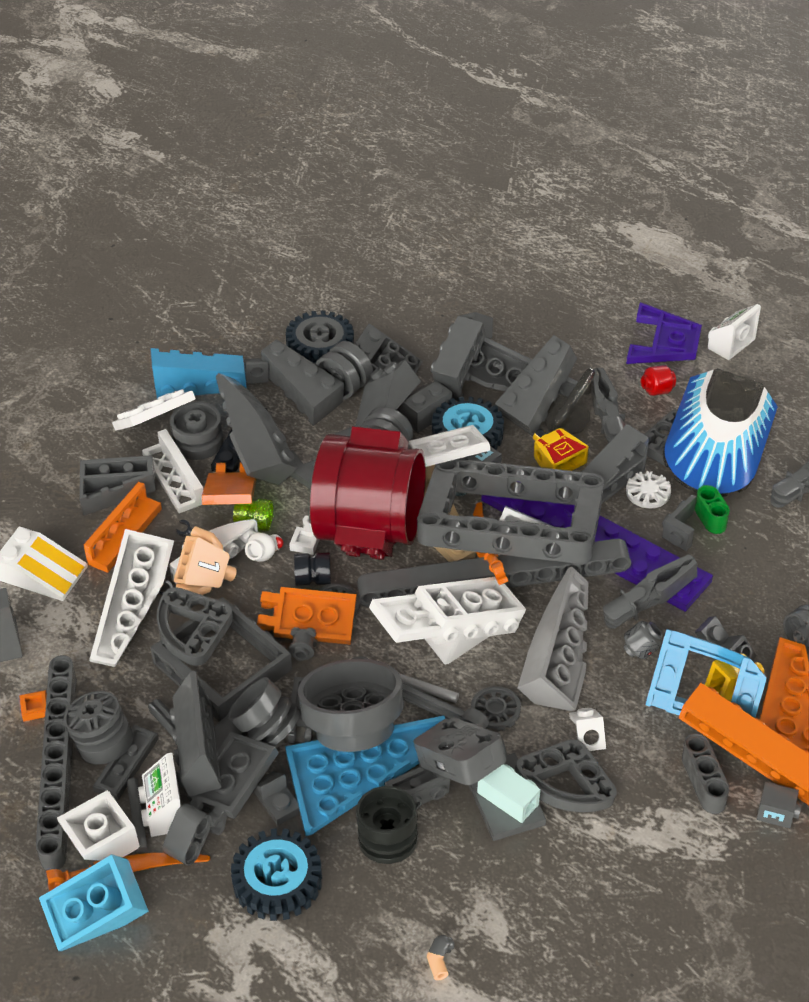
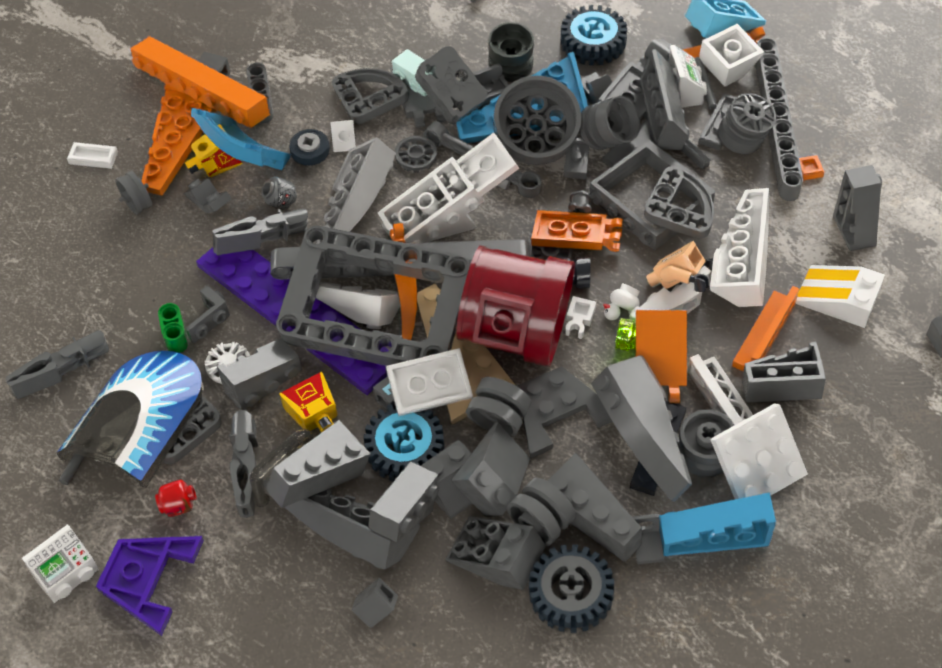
camera: 175 degrees left, 10 degrees up
(623, 706) = (309, 147): none -> black wheel

